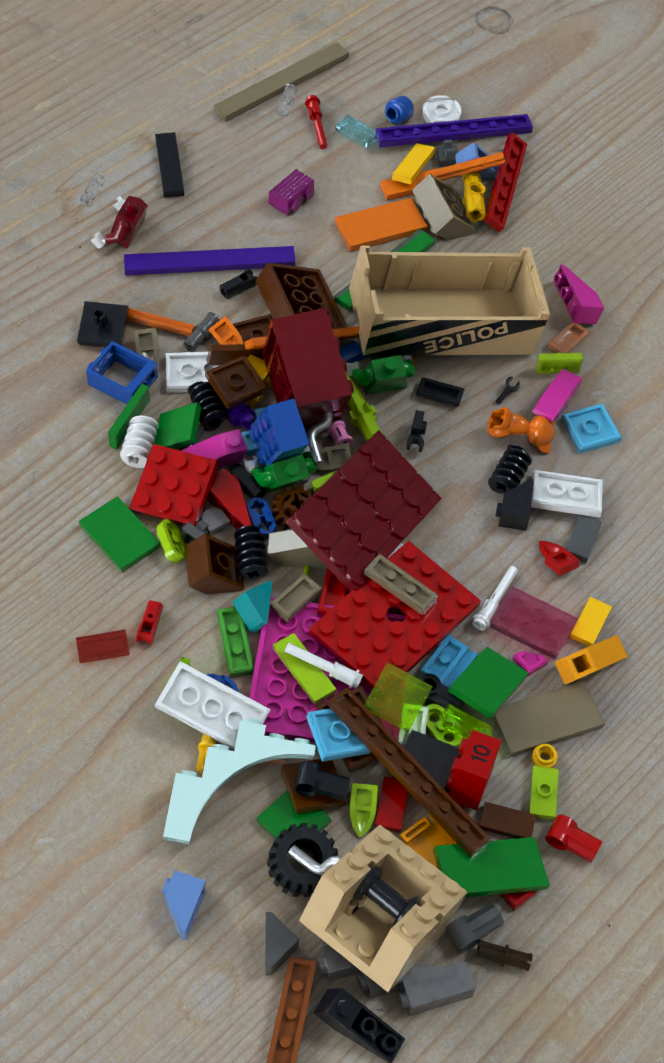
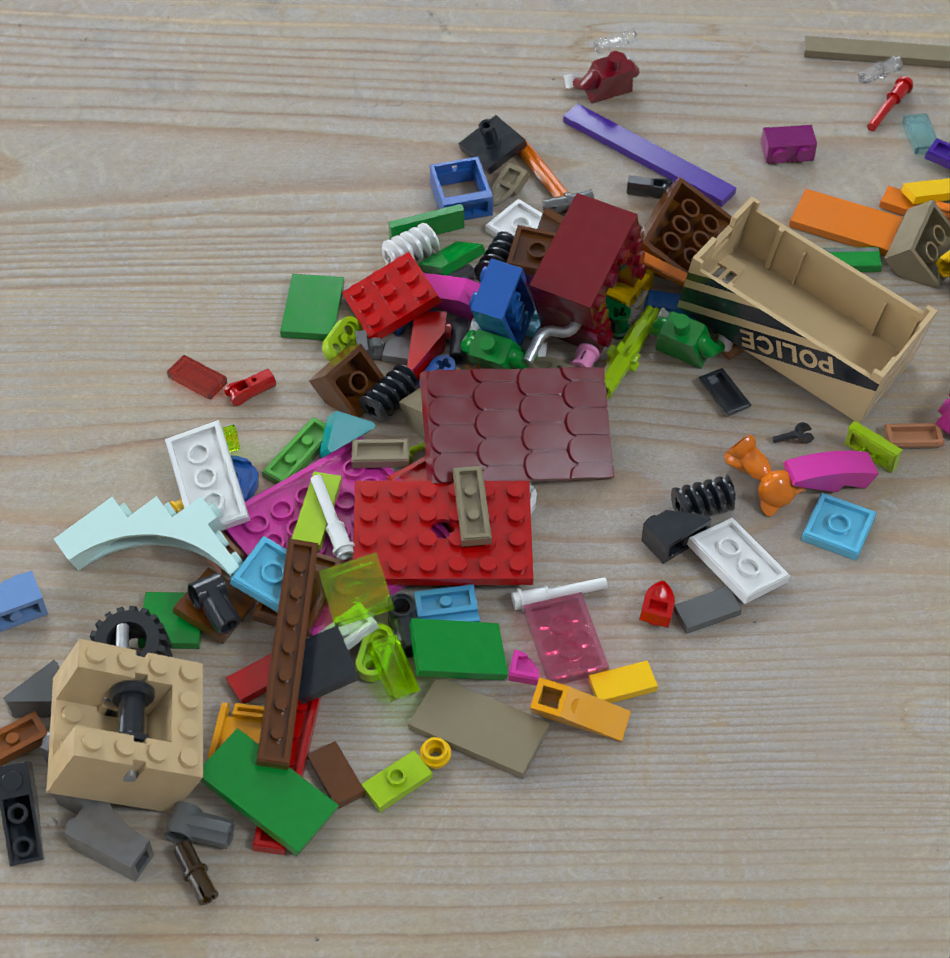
camera: 50 degrees right, 5 degrees down
(169, 164) = (707, 60): black tile -> none
(363, 807) = (236, 653): lime plate -> none
(418, 427) = (660, 404): black plate -> none
(473, 768) = (346, 700): red brick -> none
(566, 835) = (369, 832): red piece -> none

